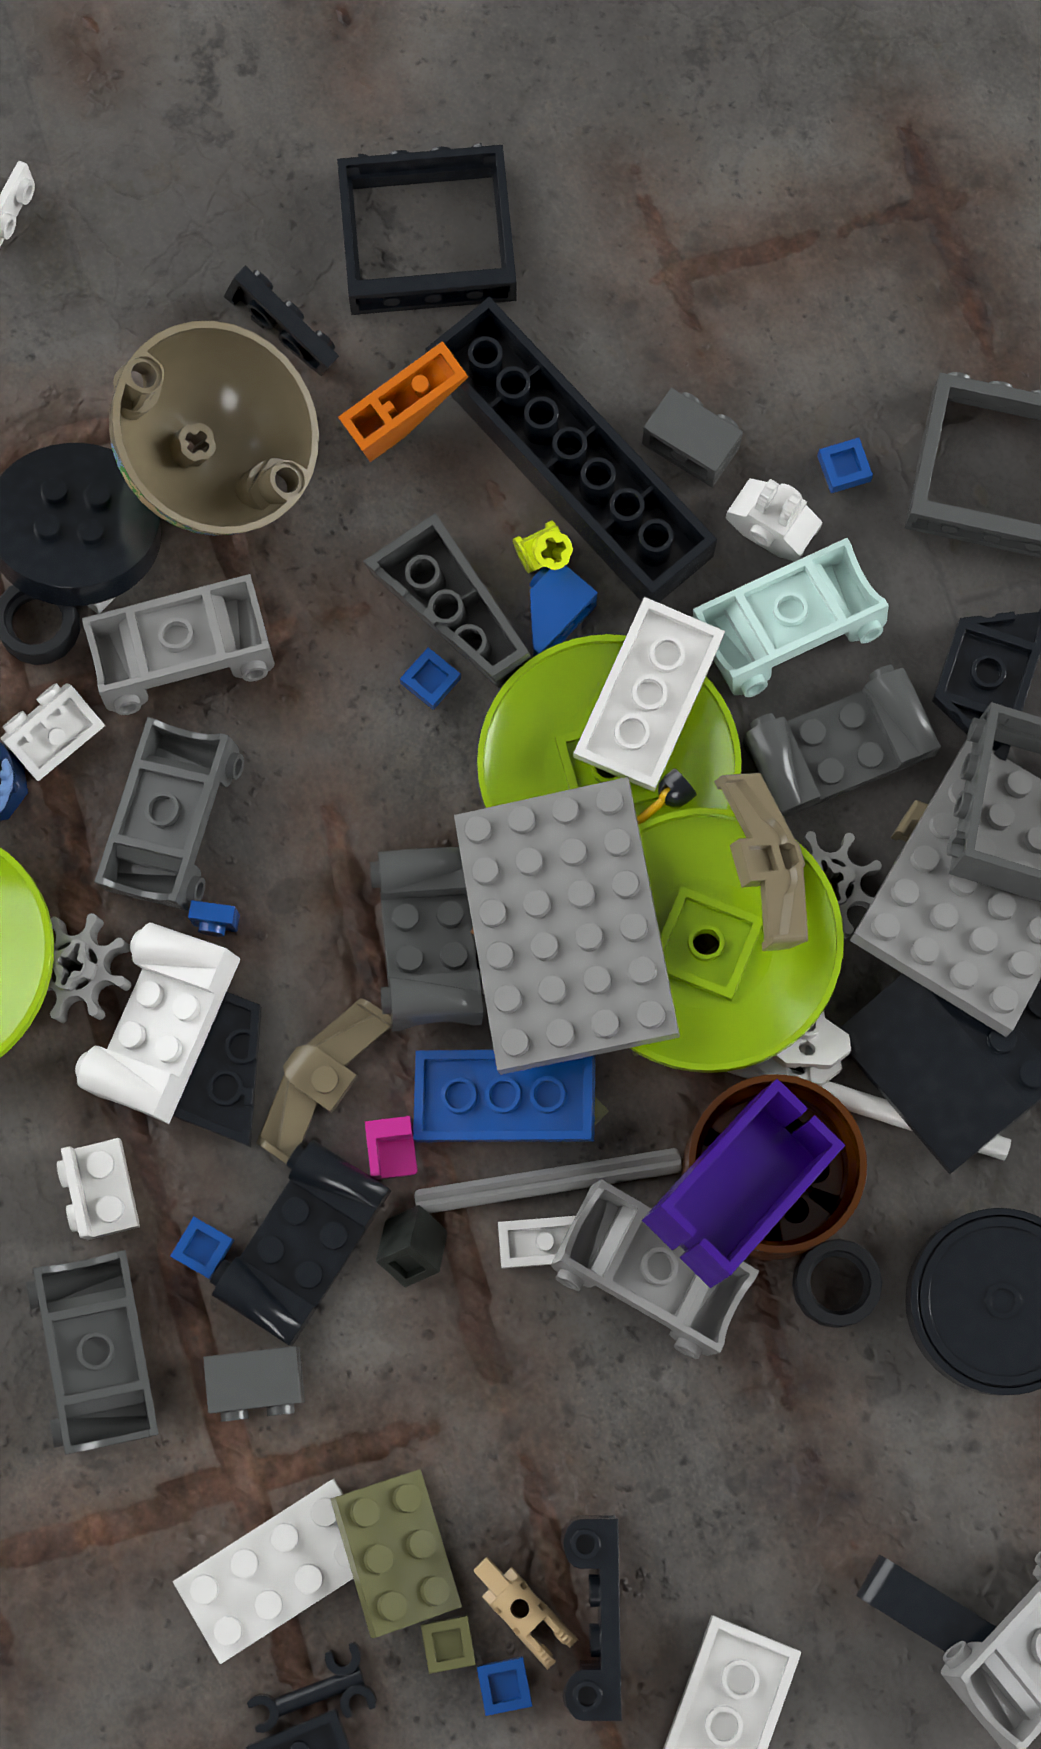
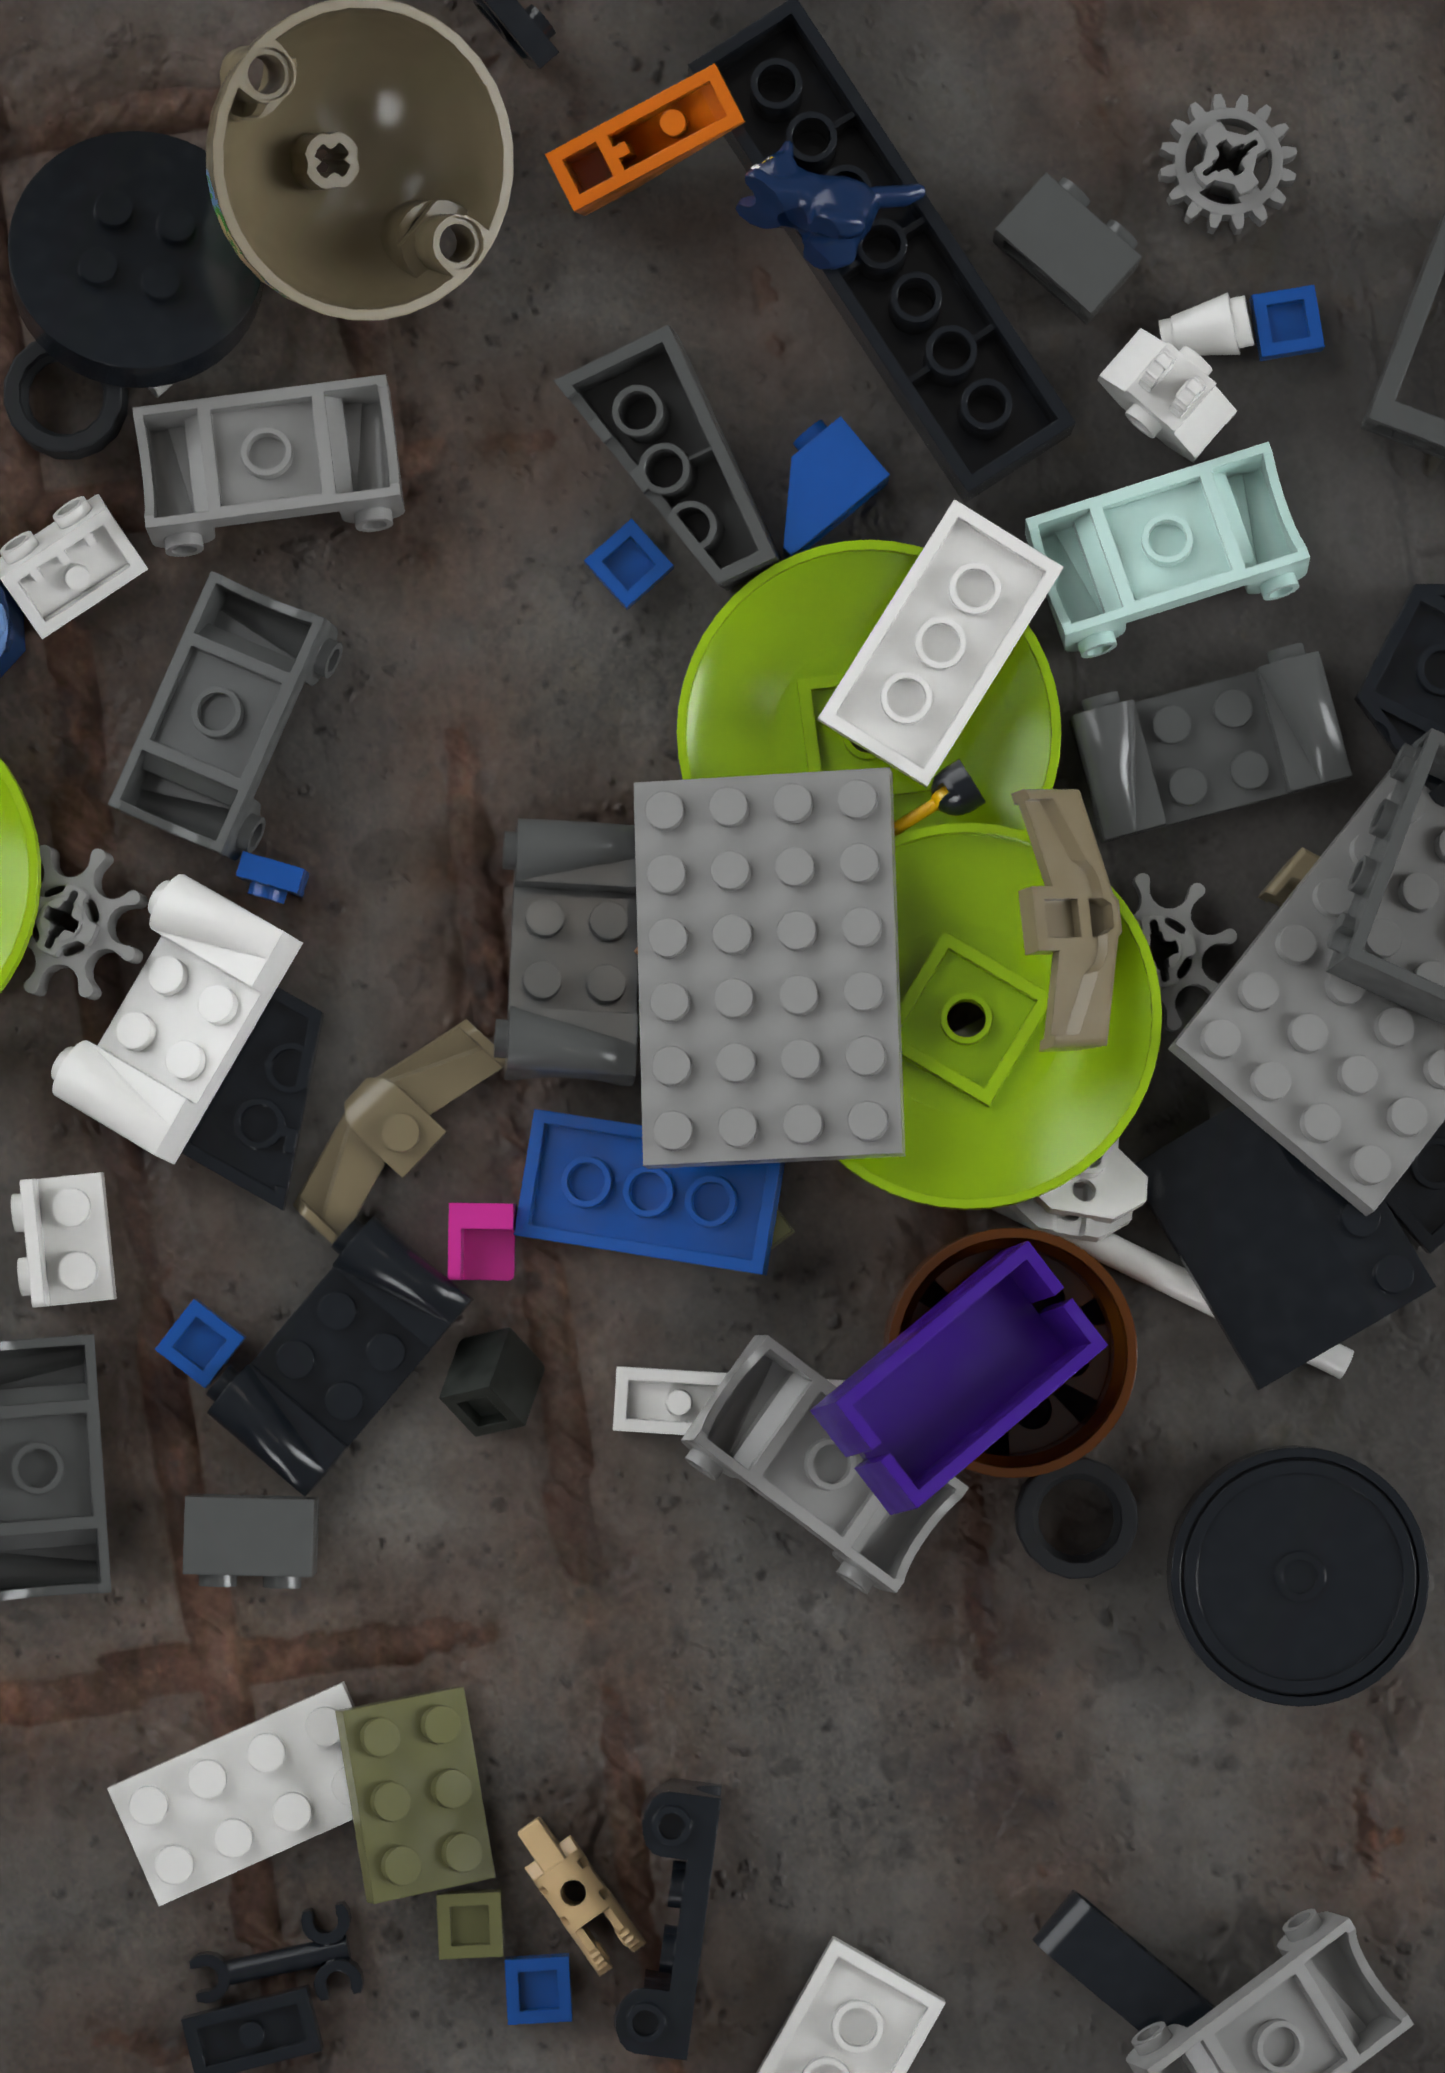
camera: 10 degrees right, 10 degrees up
(529, 422) = (825, 209): none -> dark blue animal
(544, 548) = (822, 394): neon yellow connector -> none
(548, 1180) = (696, 1317): light grey axle -> none
(788, 388) = (1213, 140): none -> light grey gear
(800, 471) = (1211, 327): none -> white cone

